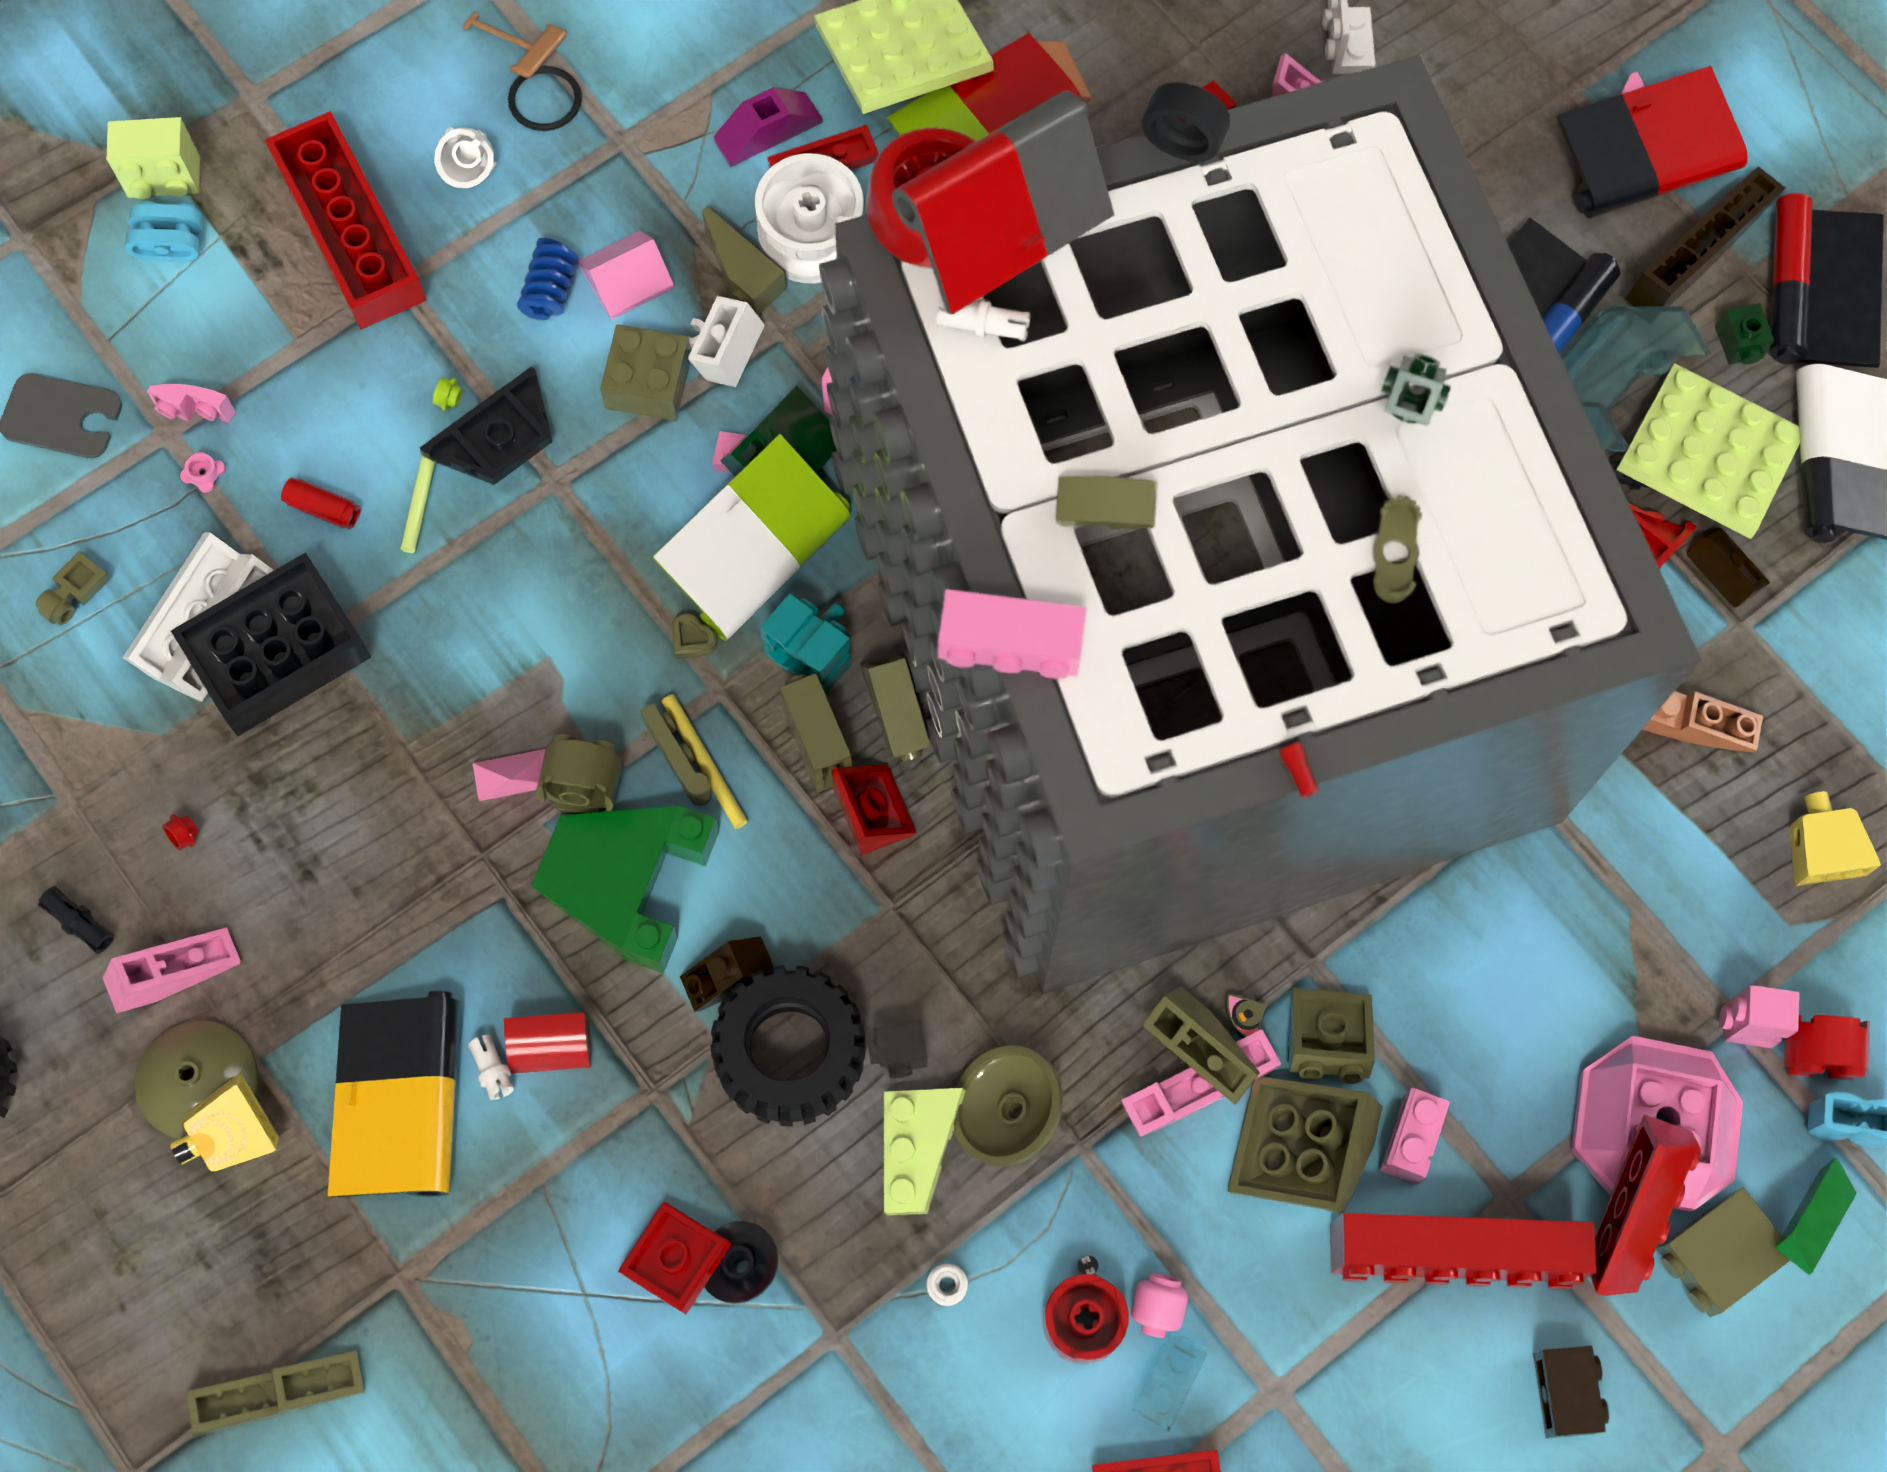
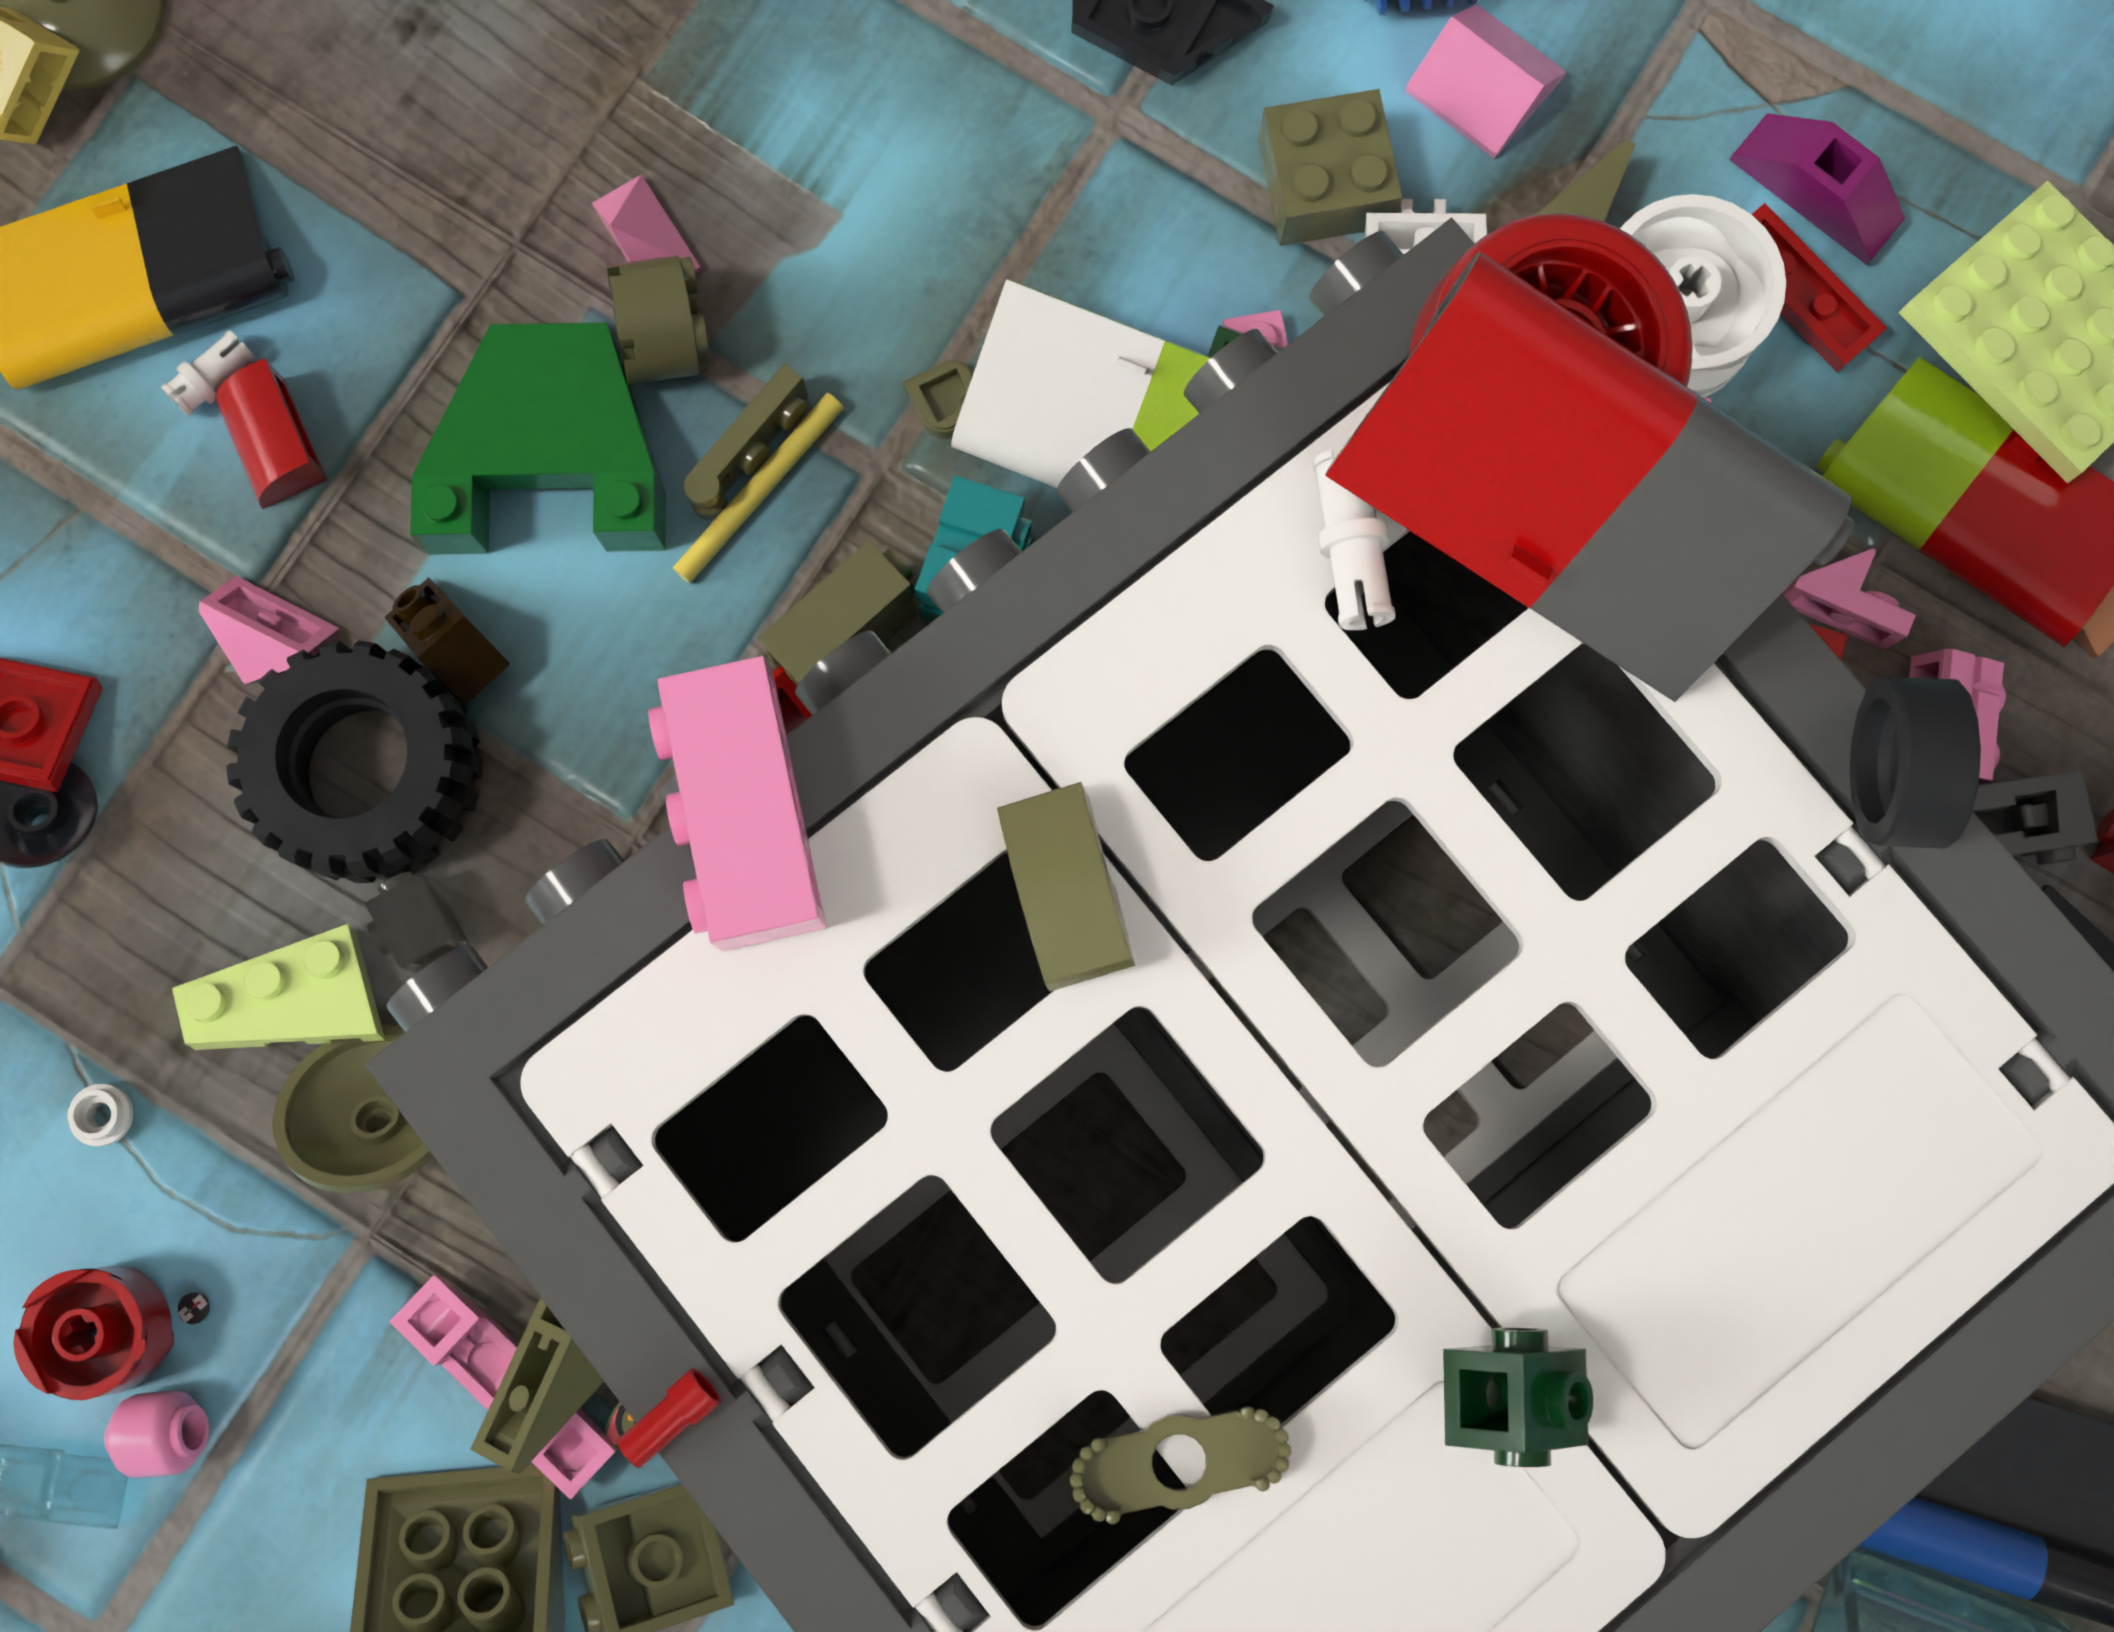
camera: 70 degrees right, 10 degrees up
(676, 1086) = (260, 628): none -> bright pink slope

